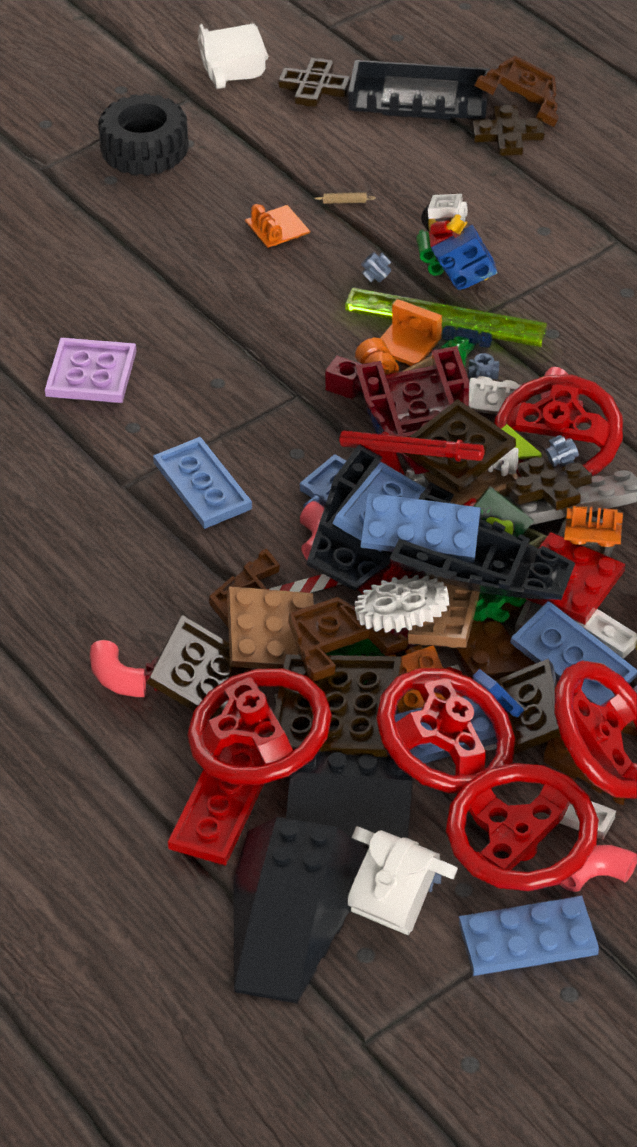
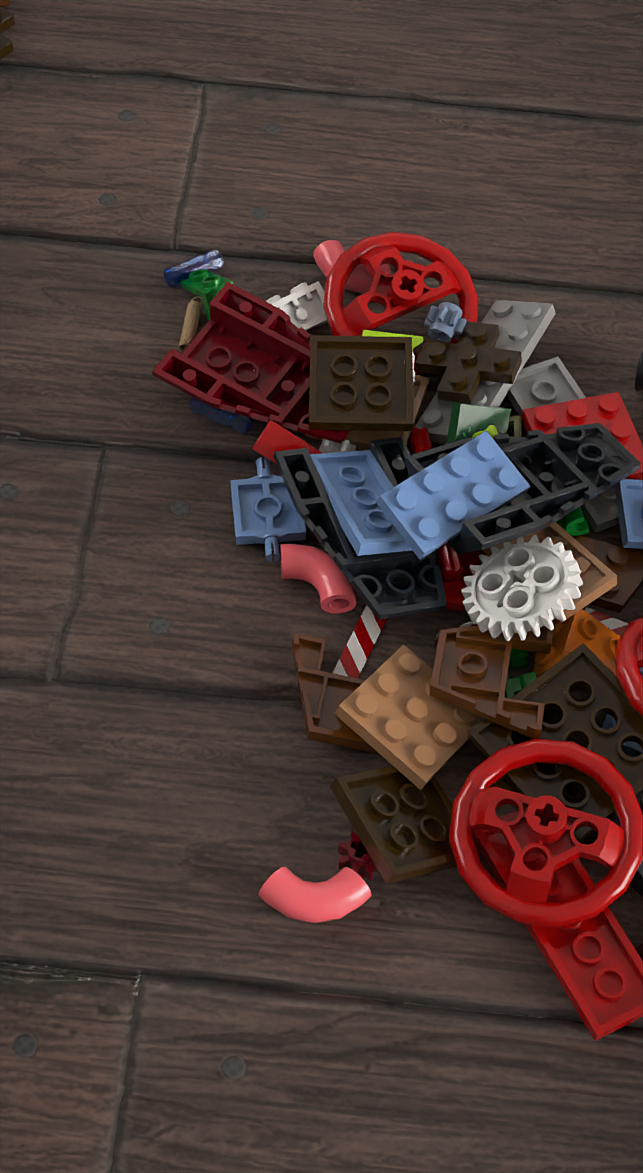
camera: 50 degrees left, 10 degrees up
(202, 482) = (135, 612): medium blue plate -> none
(342, 377) = (138, 391): dark red brick -> none
(376, 267) = (26, 254): sand blue gear -> none
(376, 350) = (144, 350): orange wheel -> none
(412, 332) = (144, 302): orange bracket -> none
(413, 445) = (328, 415): red axle -> none
(446, 206) = (55, 143): white bracket -> none
(458, 254) = (77, 188): blue piece -> none
(483, 366) = (256, 284): sand blue gear -> none
(500, 326) = (147, 262): clear neon green plate -> none
(605, 533) = (558, 377): orange hinge -> none

